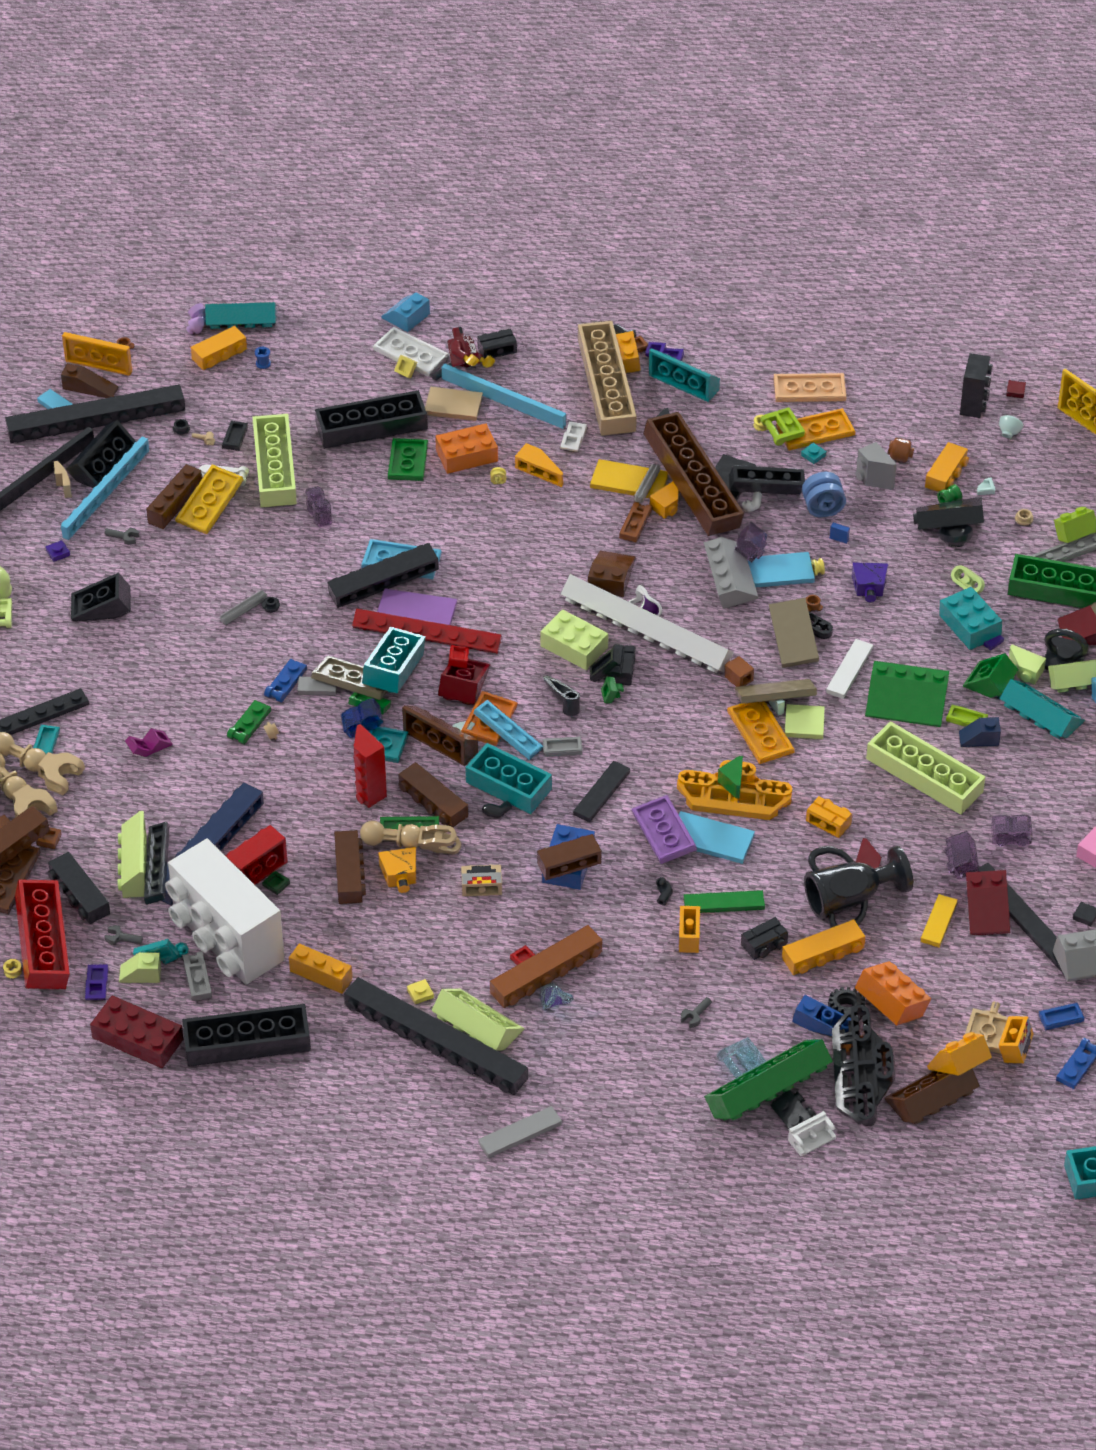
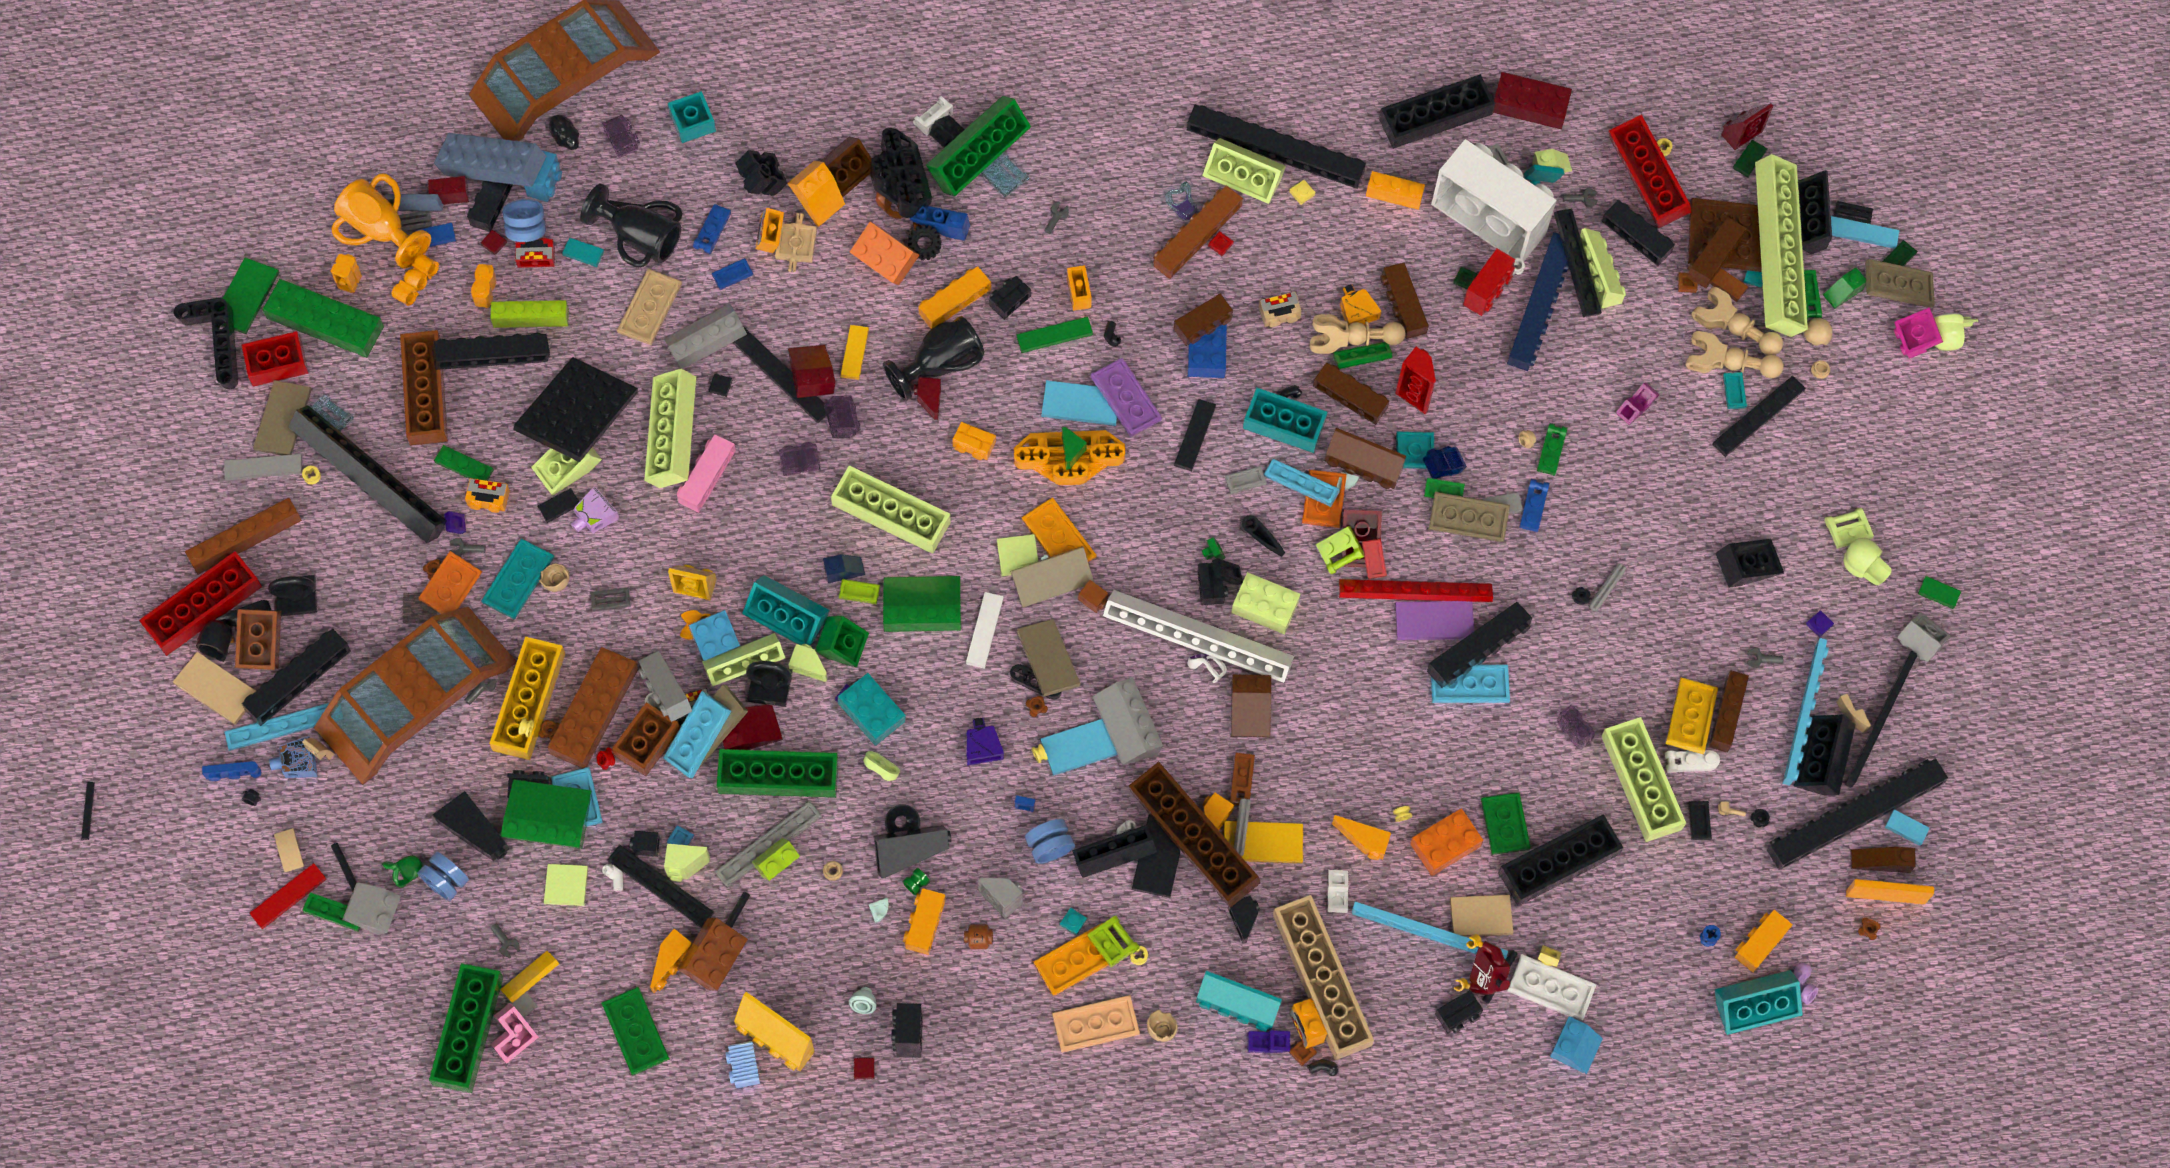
camera: 165 degrees right, 20 degrees up
(96, 982) = (1585, 147): dark purple slope -> none
(393, 660) = (1434, 529): teal brick -> none
(489, 666) = (1337, 544): none -> lime plate
(520, 1132) = (1179, 77): light grey tile -> none
(751, 542) = (1114, 760): clear purple brick -> none
(754, 371) = (1160, 1019): none -> tan hair
(1018, 1092) = (761, 173): none -> black brick

